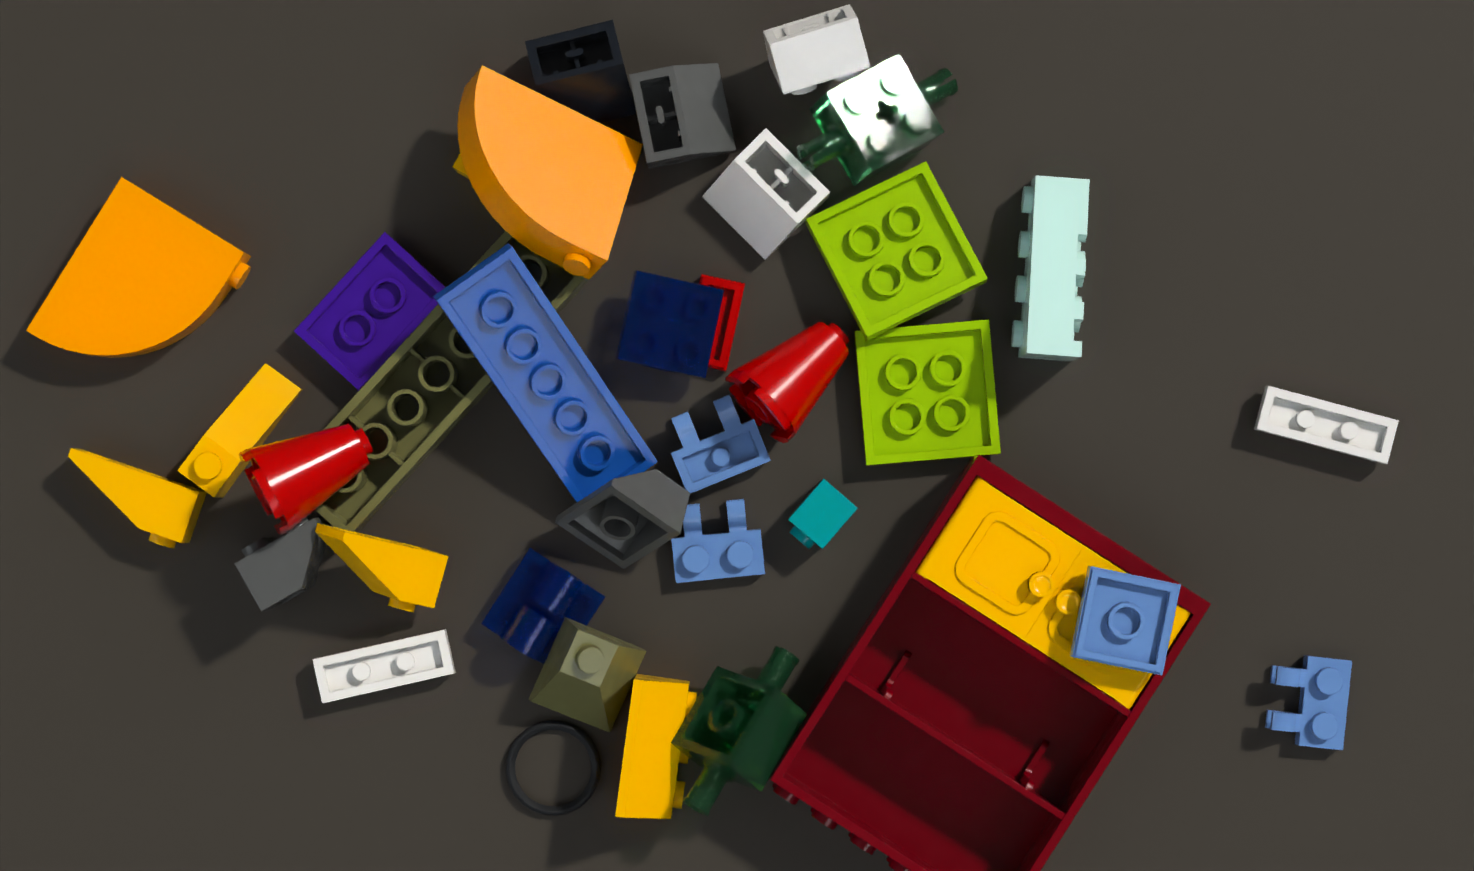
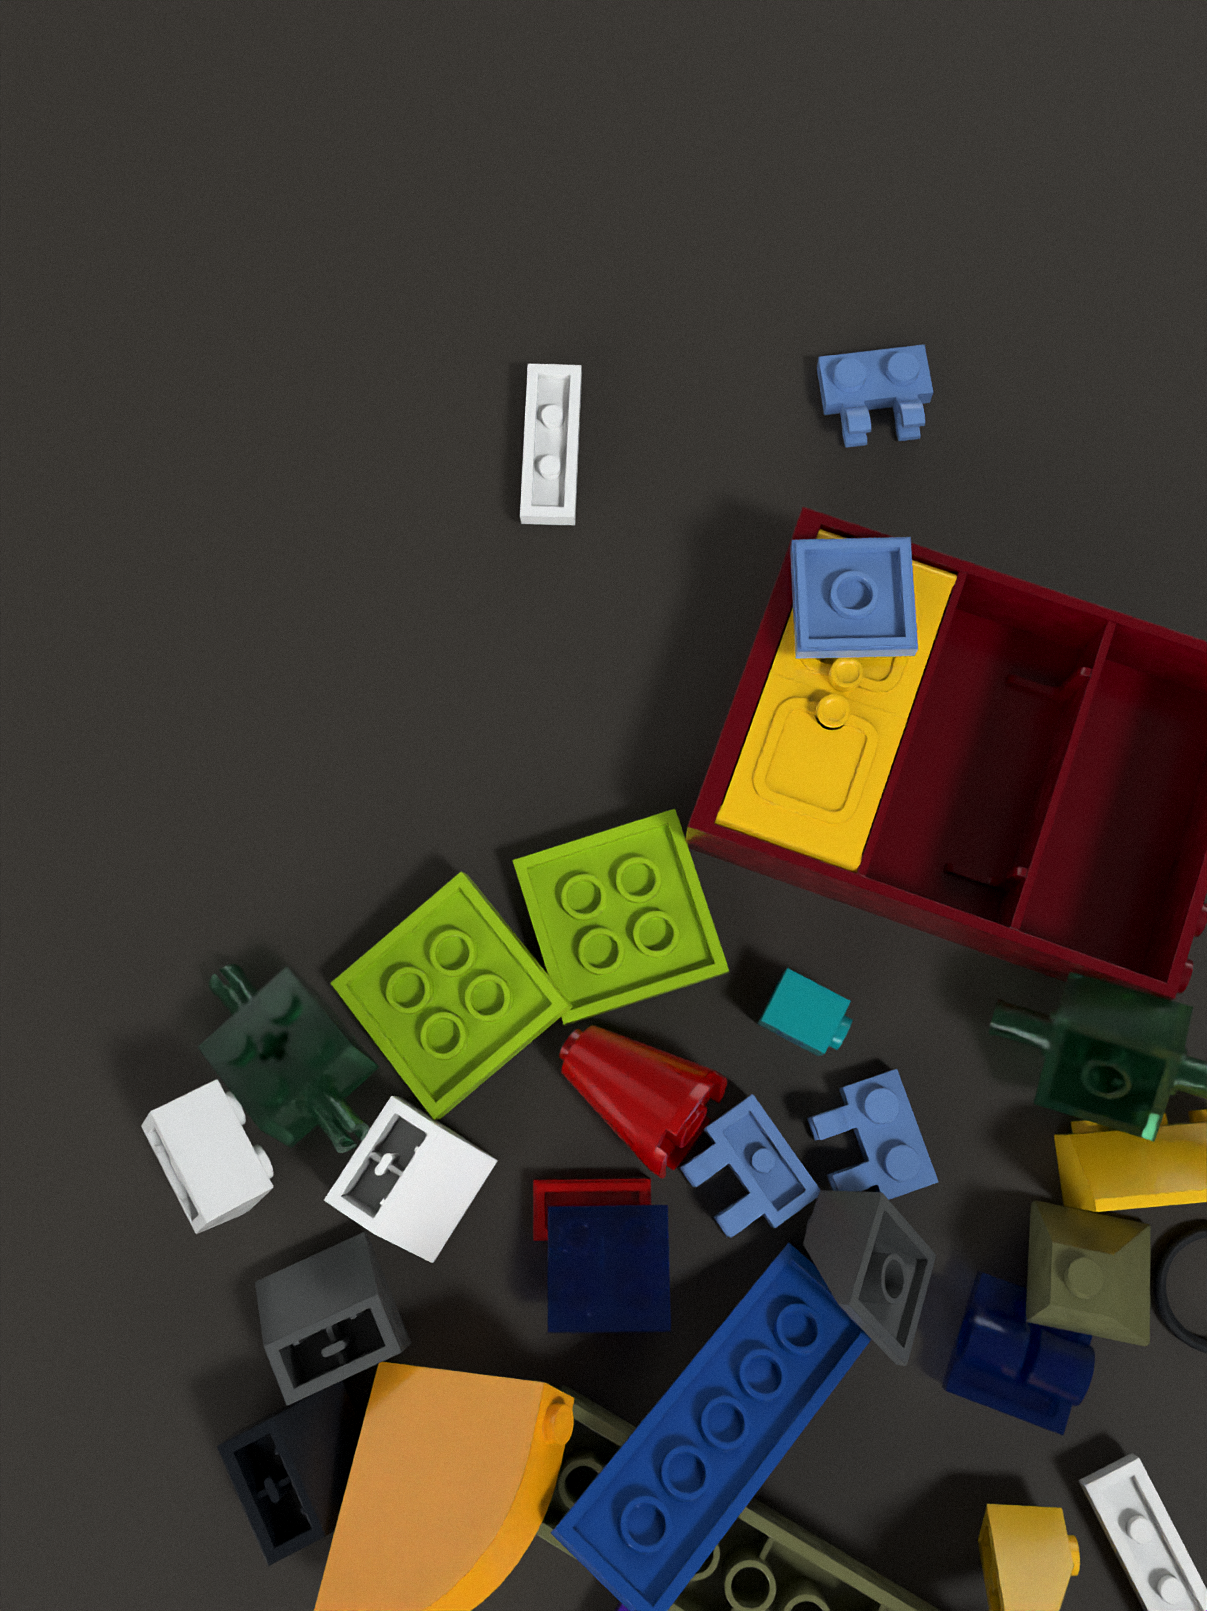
camera: 100 degrees left, 10 degrees down
(1052, 268) = (433, 796): light aqua wedge -> none

